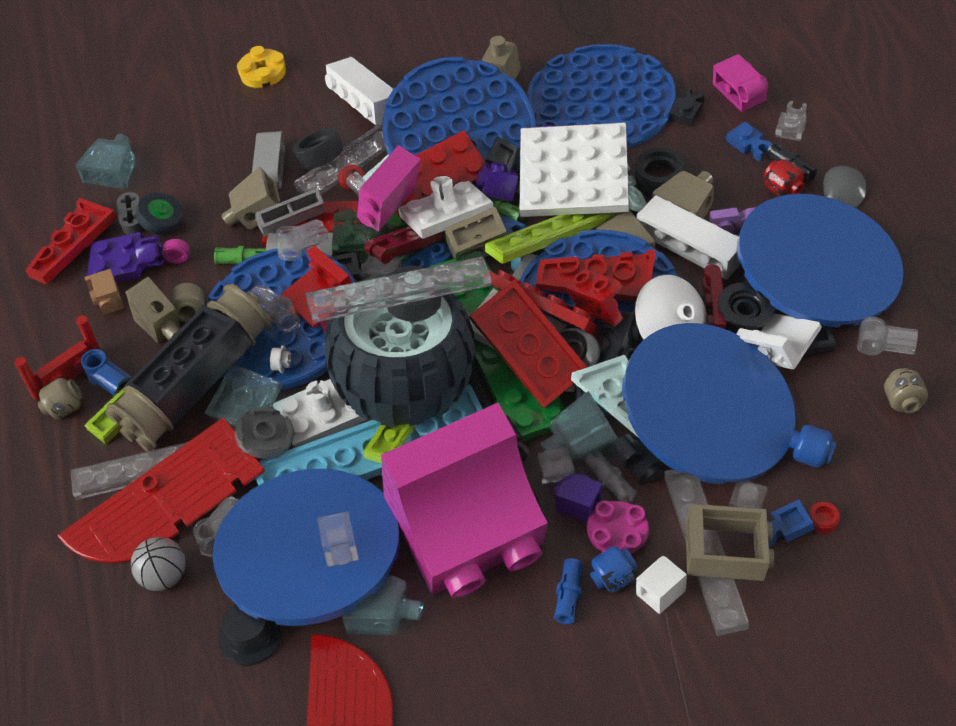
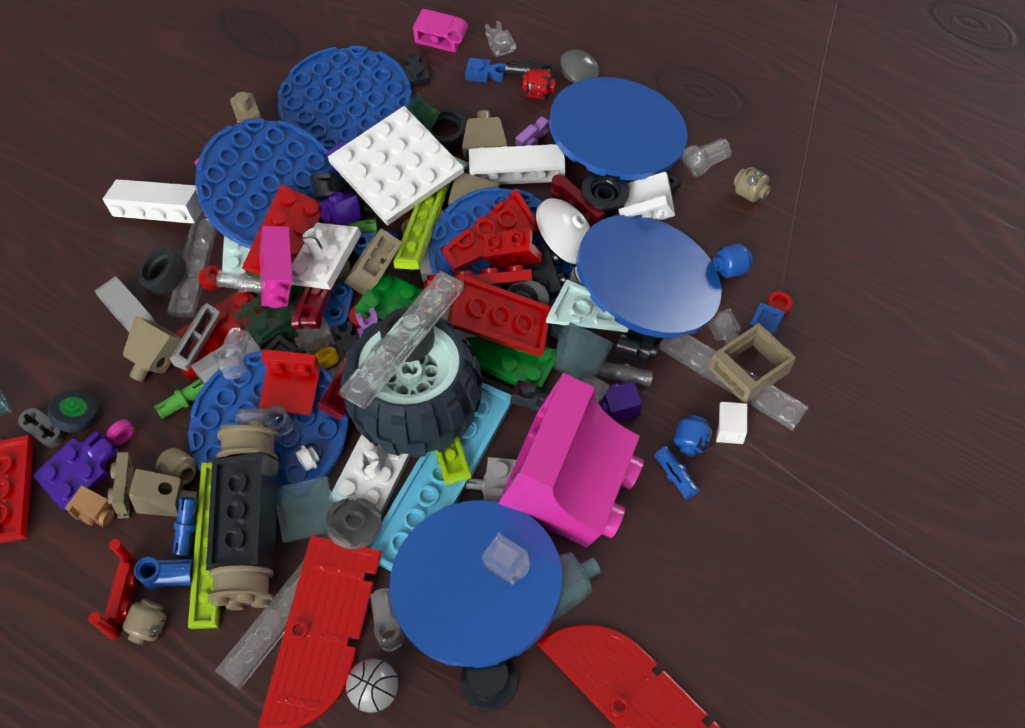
camera: 45 degrees left, 10 degrees up
(149, 347) = (184, 526): none -> blue pin
(151, 270) = (122, 474): none -> dark tan plate
(261, 67) = (26, 225): yellow plate -> none
(618, 525) = (665, 405): dark pink dish -> none
(646, 142) = (423, 111): none -> clear green plate

